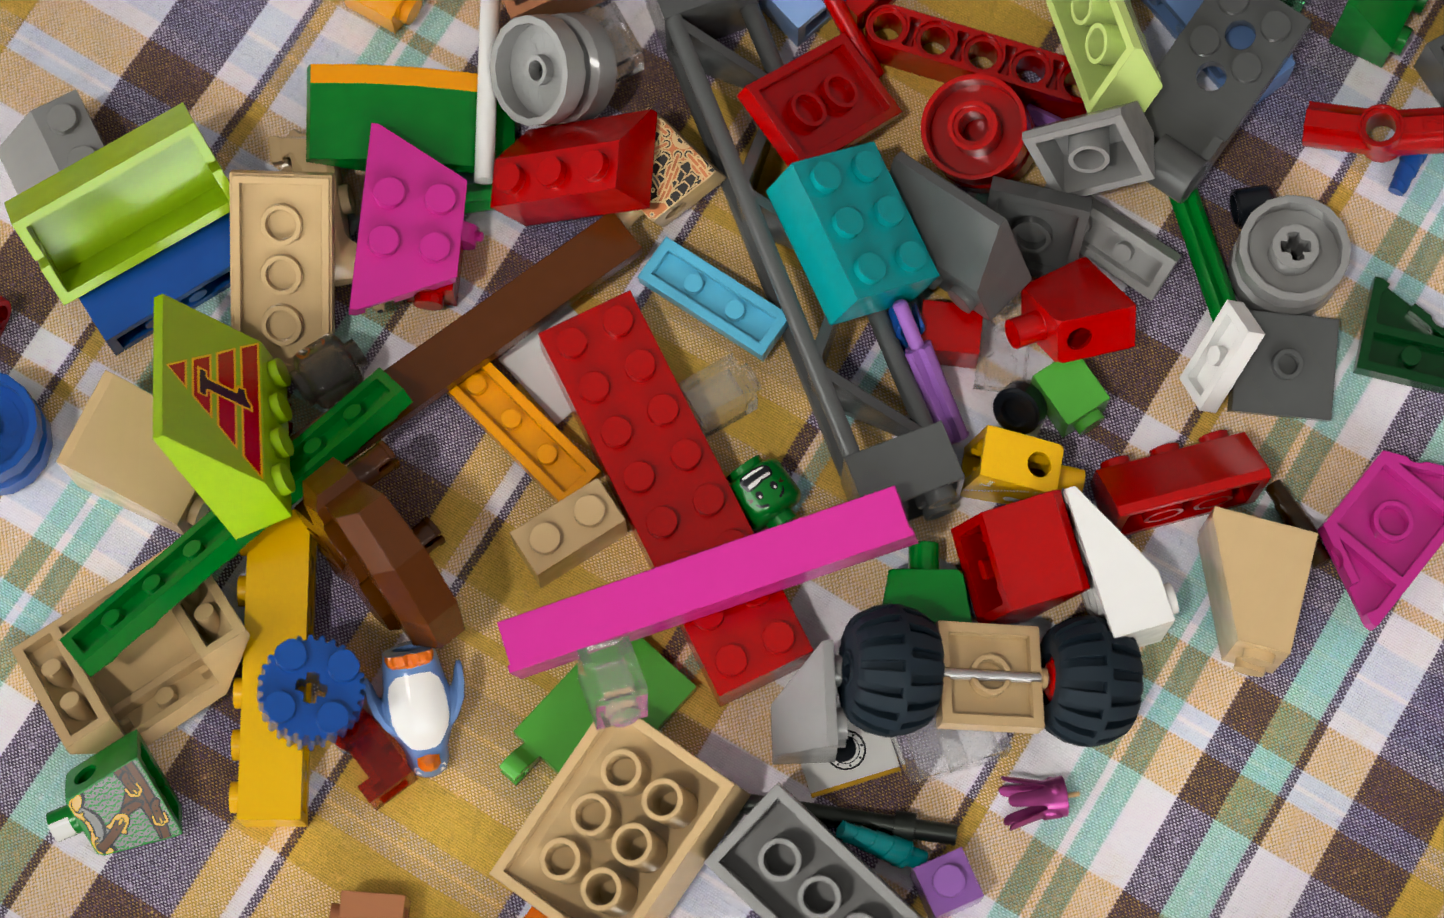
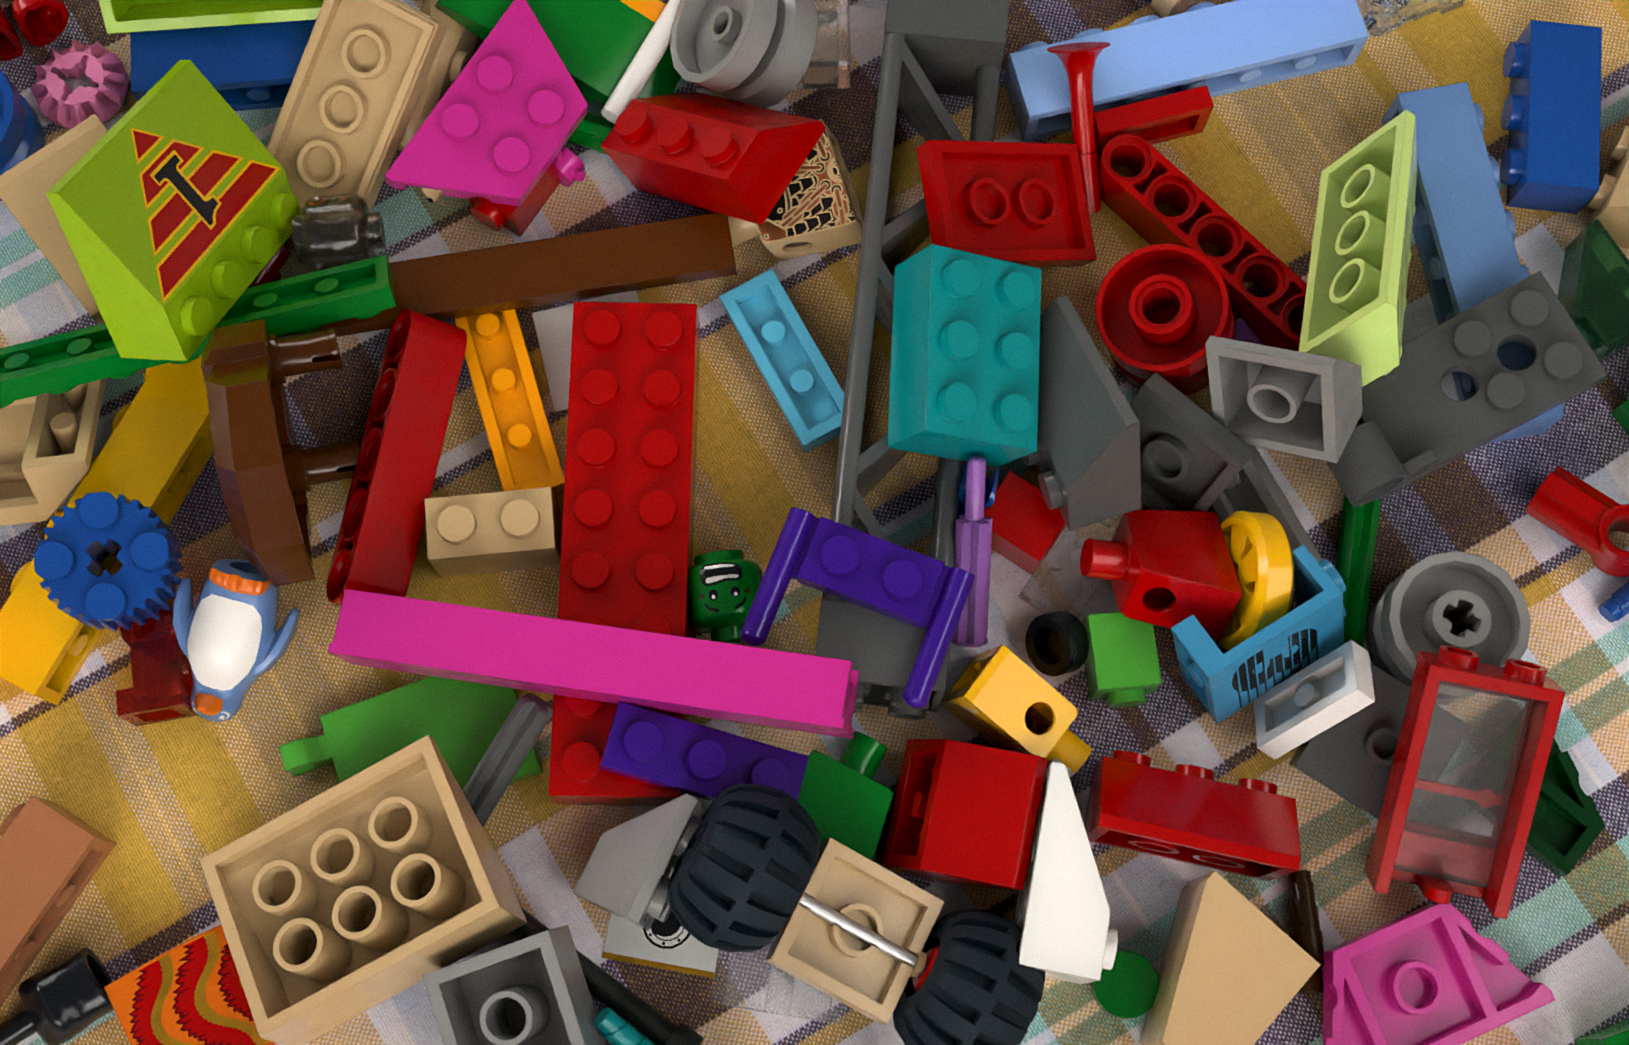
camera: 25 degrees right, 0 degrees up
(66, 369) = (101, 69): none -> bright pink gear
(467, 514) = (397, 457): none -> red beam
(612, 683) = (431, 721): clear brick -> none
(671, 683) = (506, 754): none -> dark grey axle
(721, 394) = (738, 464): clear brick -> none
(809, 614) = (694, 756): none -> dark purple plate
(871, 422) = (871, 576): none -> dark purple plate
(1146, 284) = (1263, 570): none -> yellow wheel
(1157, 371) = (1272, 655): none -> dark azure panel
(1193, 625) = (1127, 988): none -> green tile
(1246, 200) = (1430, 540): black piece -> none
(1352, 357) = (1465, 777): none -> door

